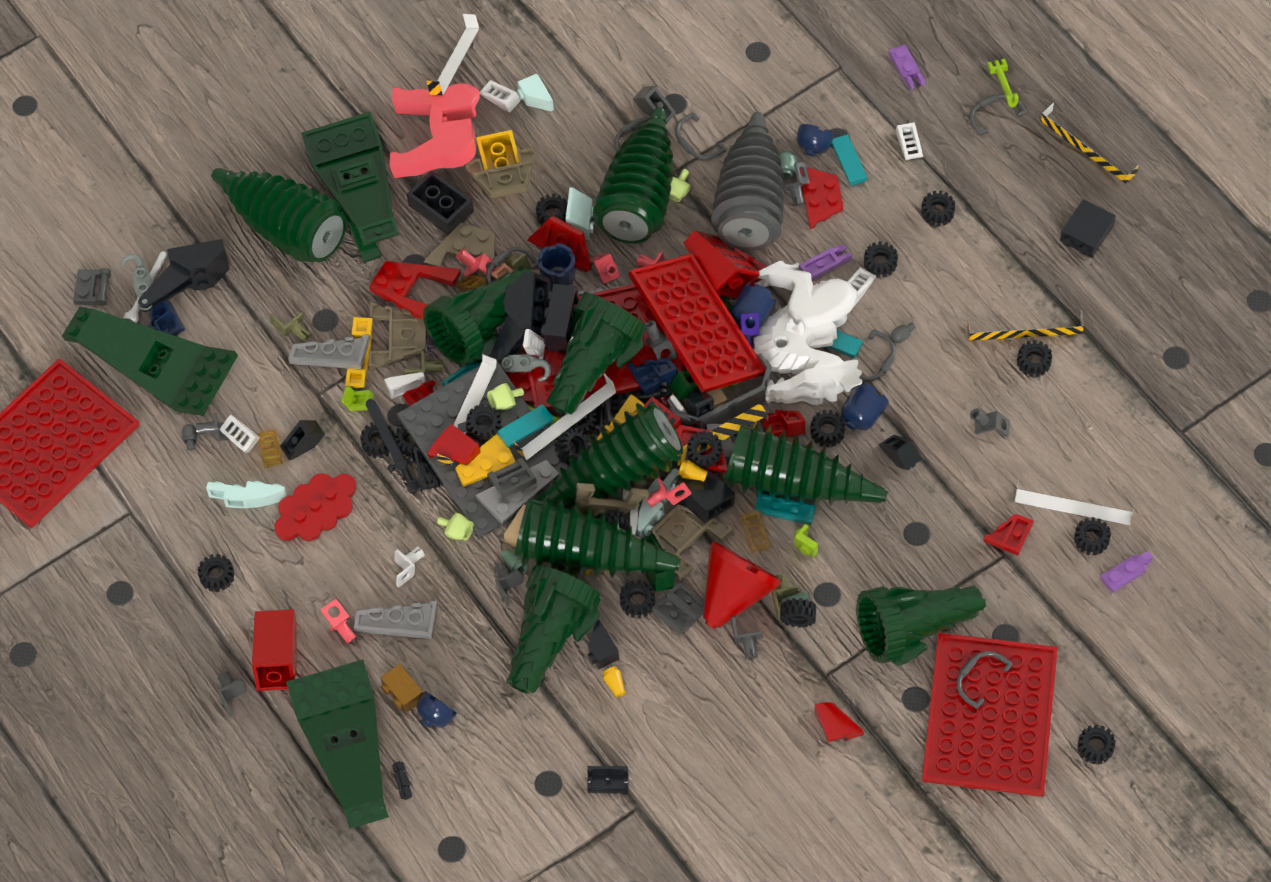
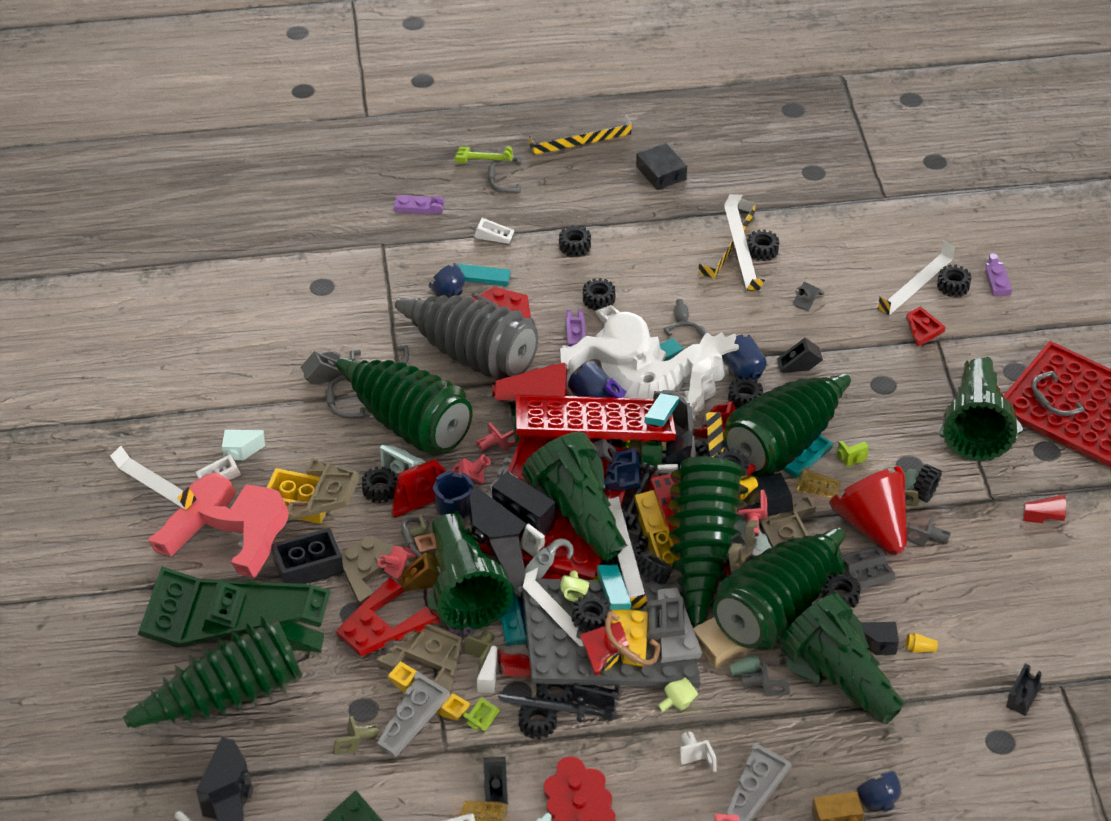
camera: 65 degrees left, 15 degrees down
(453, 467) = (626, 651): none -> medium nougat piece
(735, 367) = (661, 410): none -> tile
(1013, 344) = (741, 244): none -> white sticker

